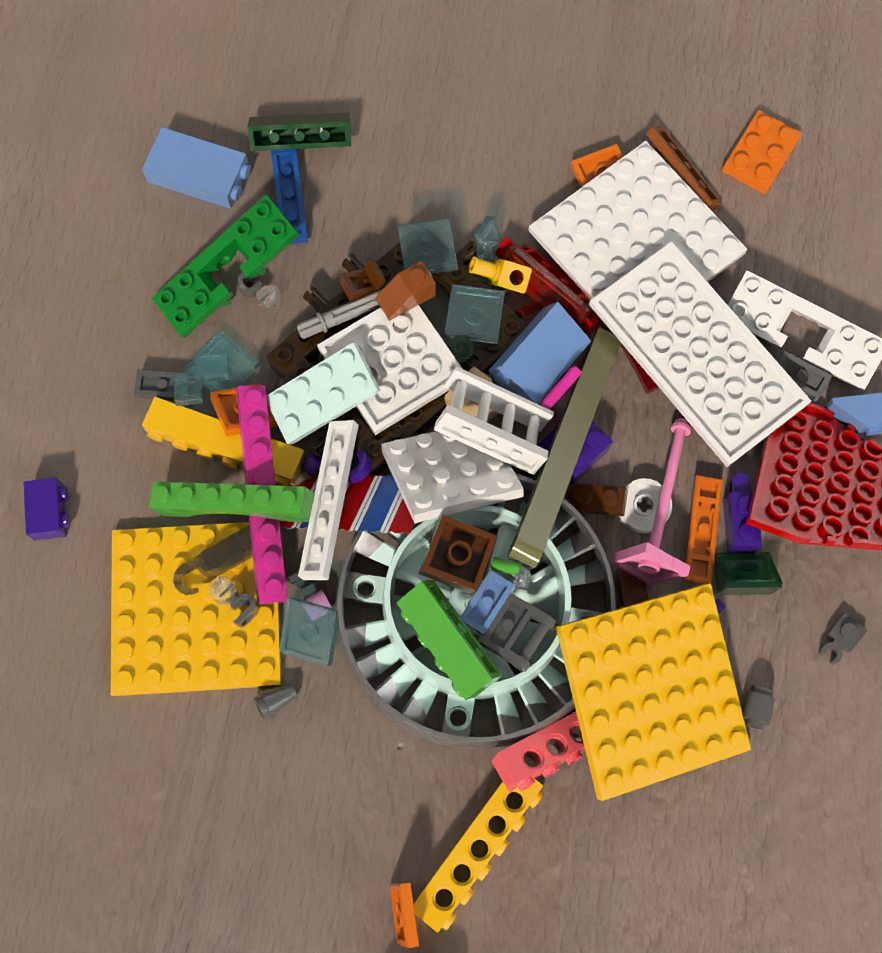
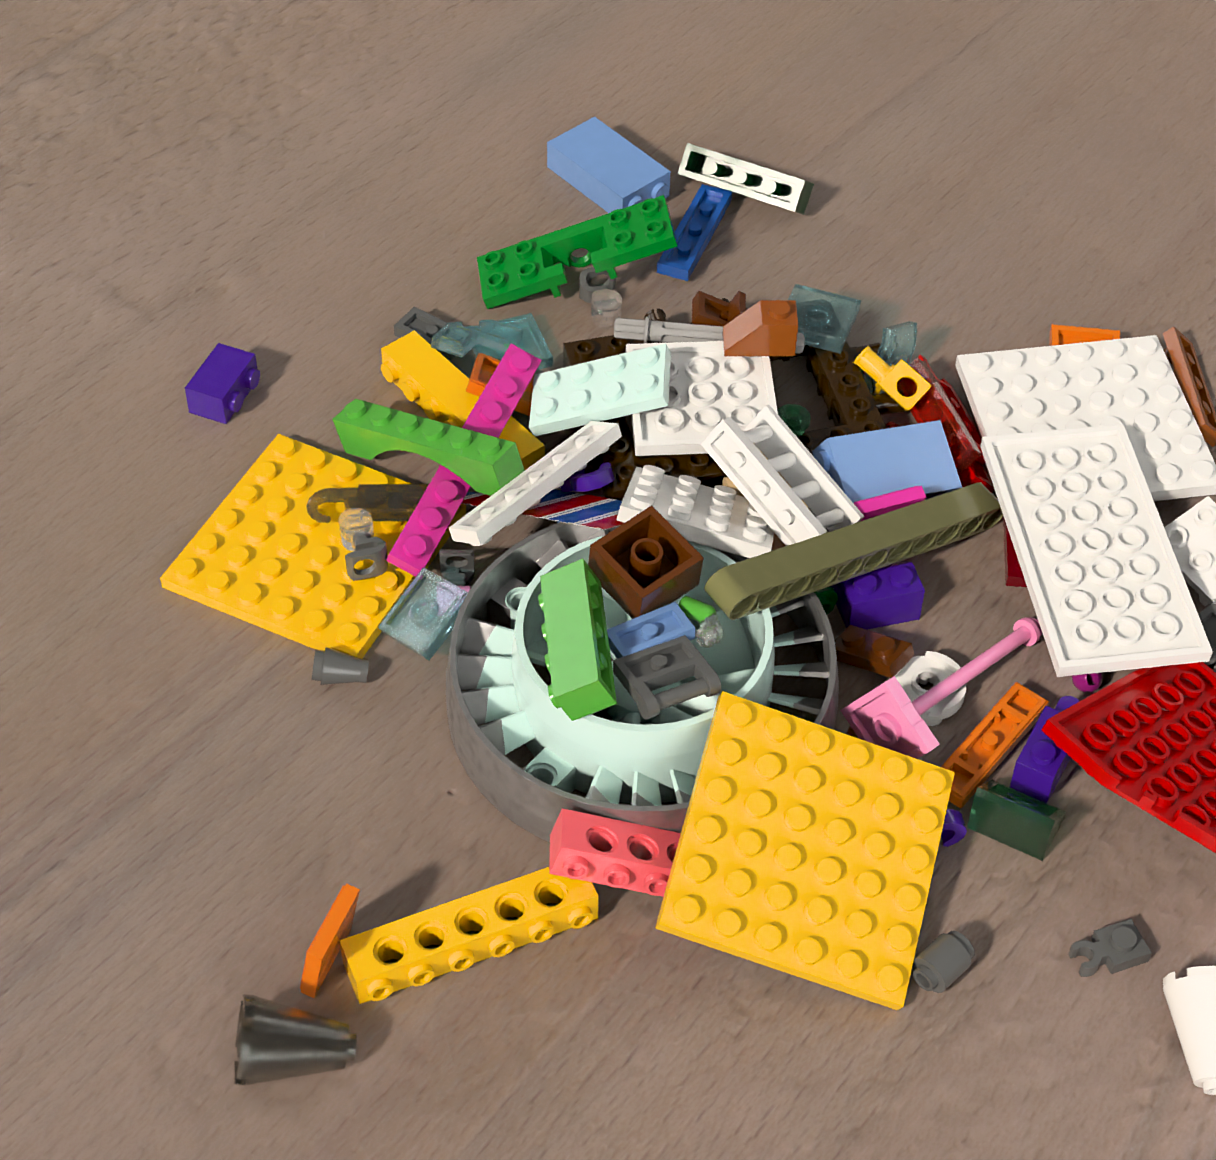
camera: 30 degrees right, 25 degrees down
(474, 313) = (833, 396): clear light blue tile -> none

